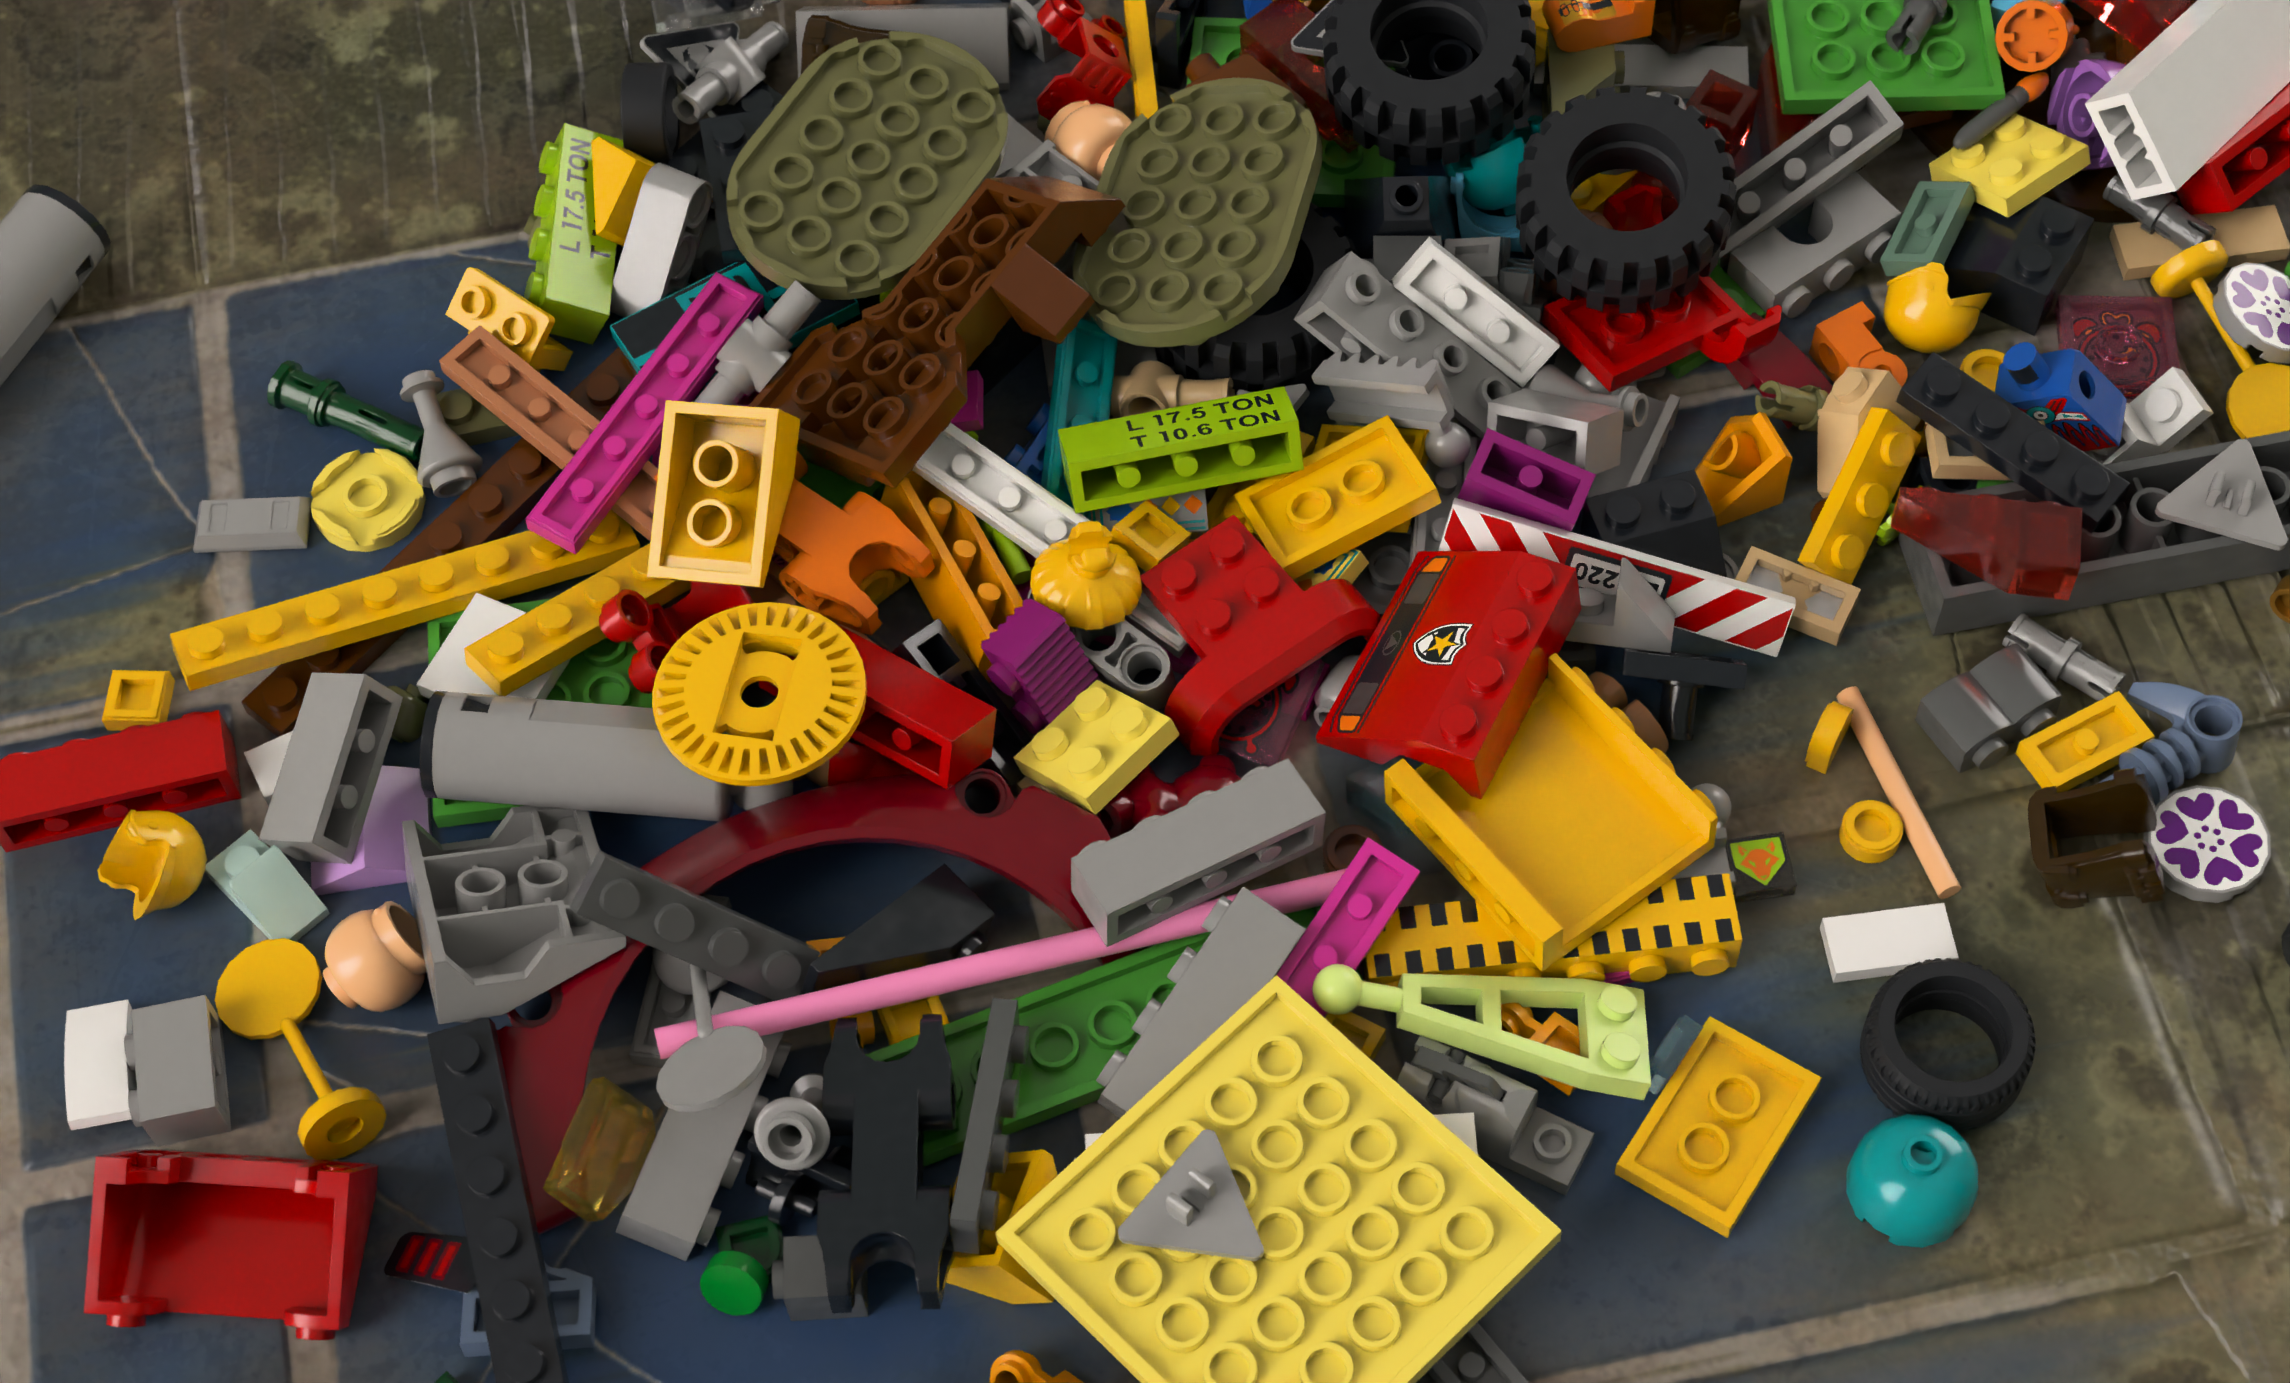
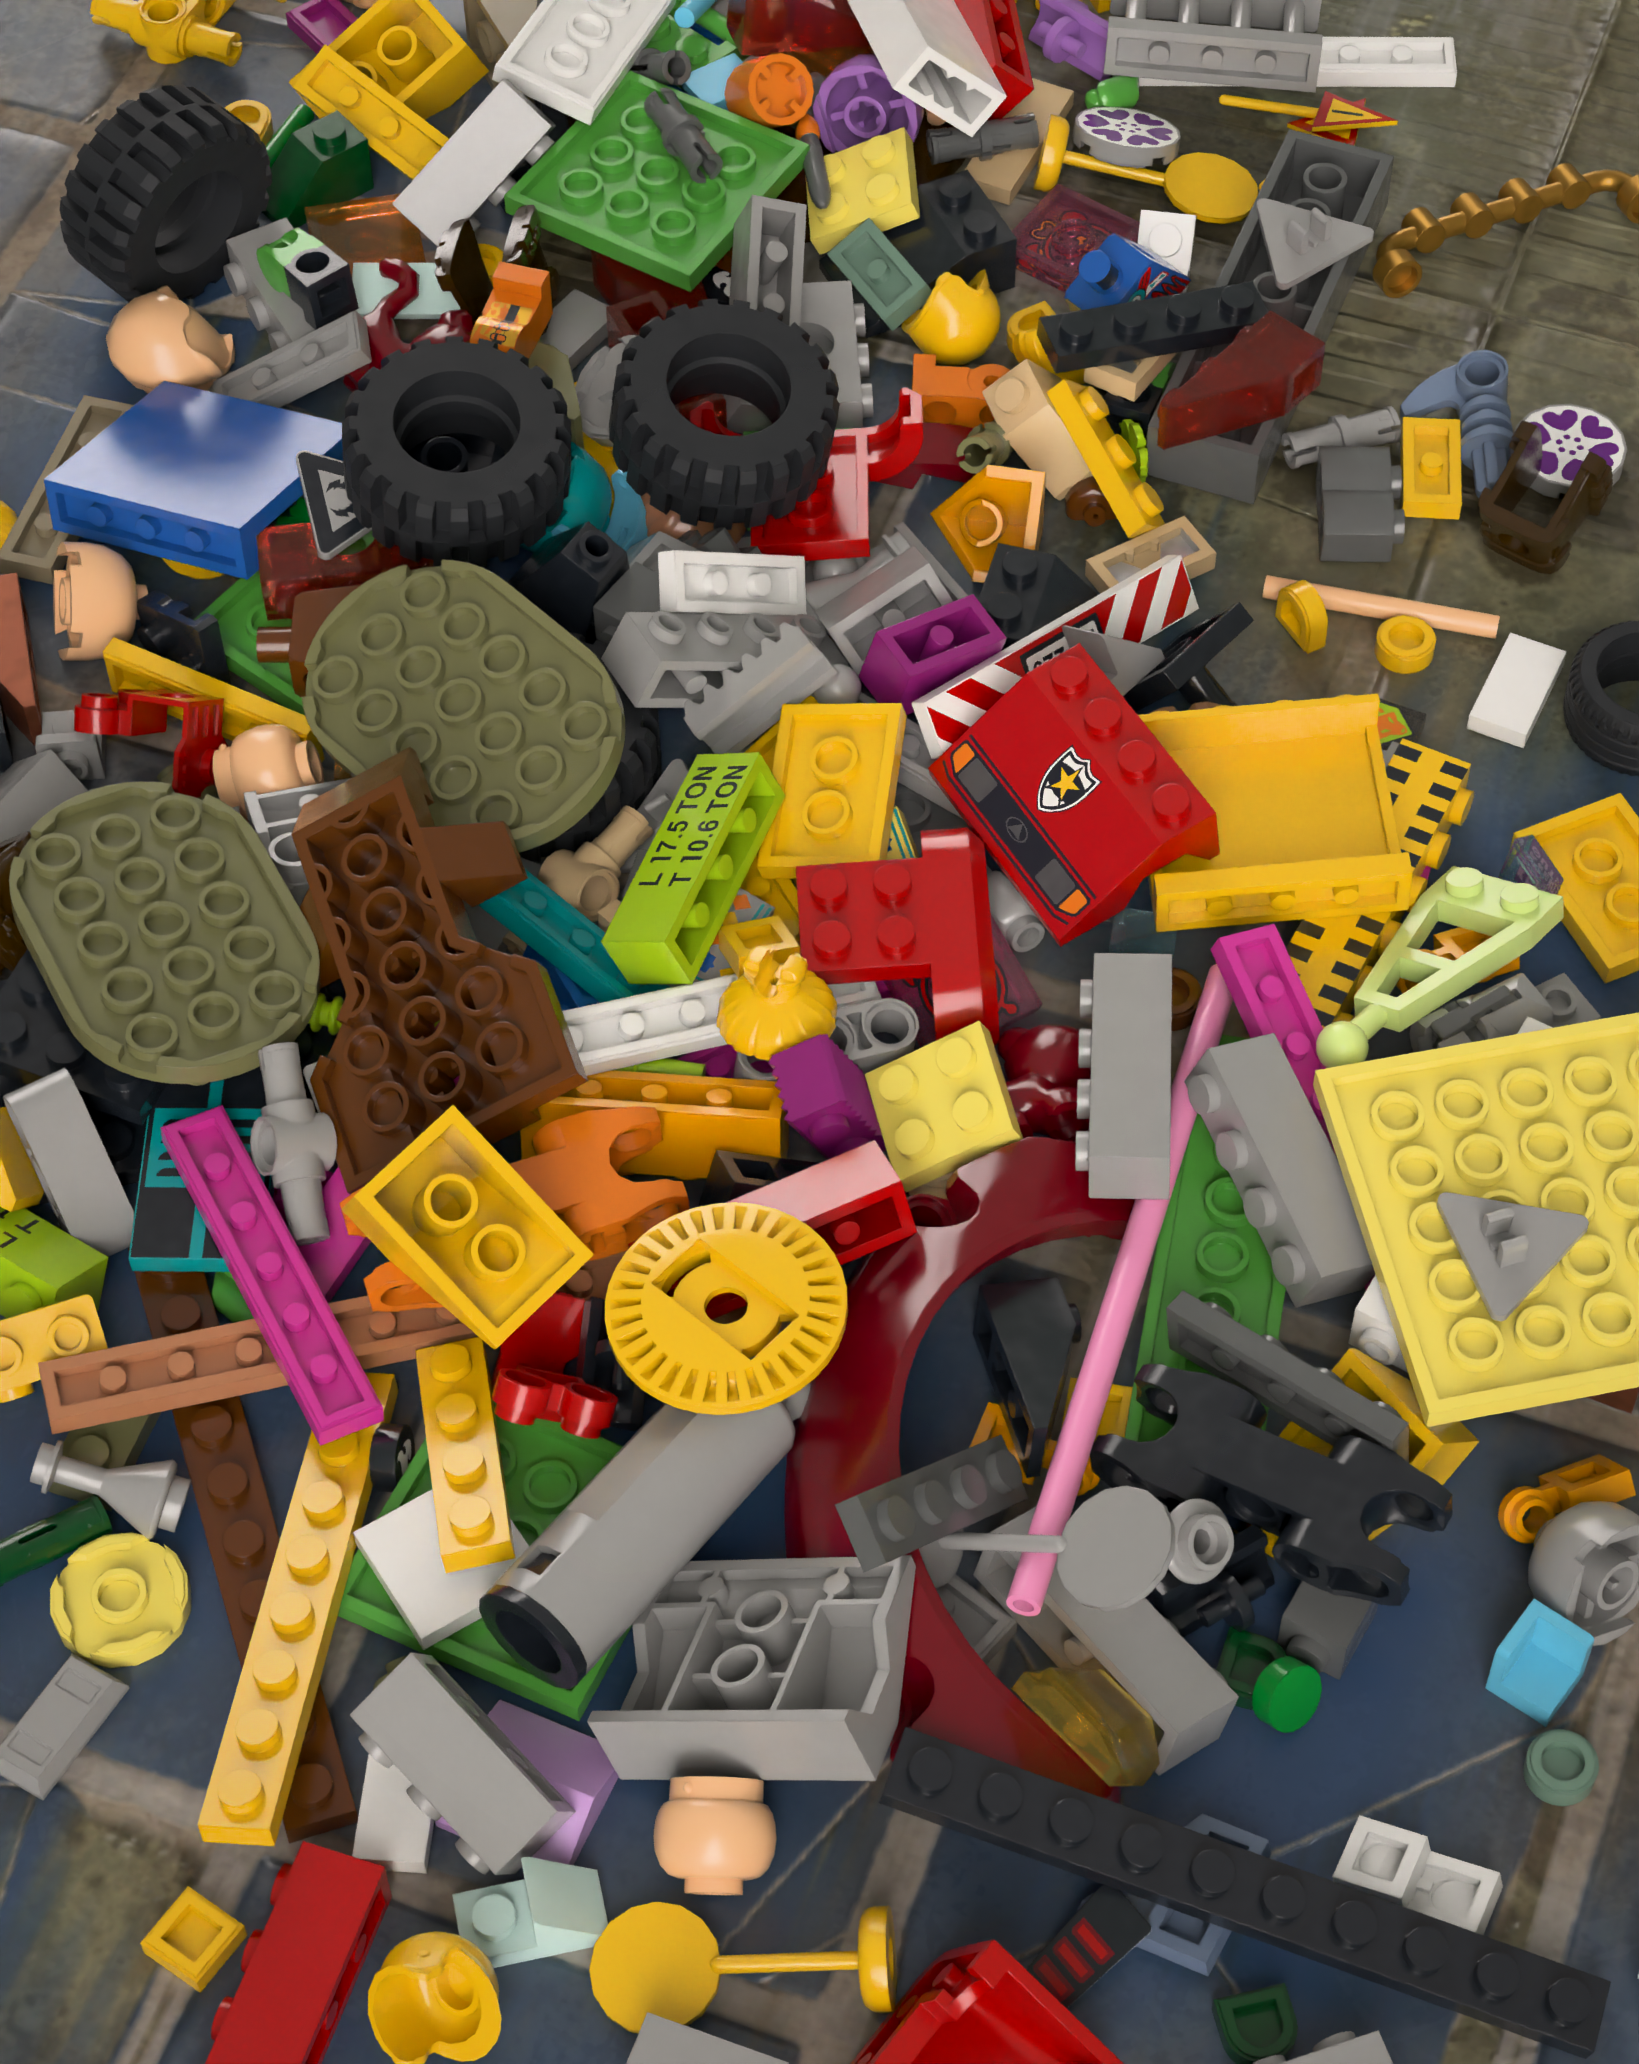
camera: 60 degrees left, 5 degrees down
(565, 575) = (390, 1455): none -> black tile

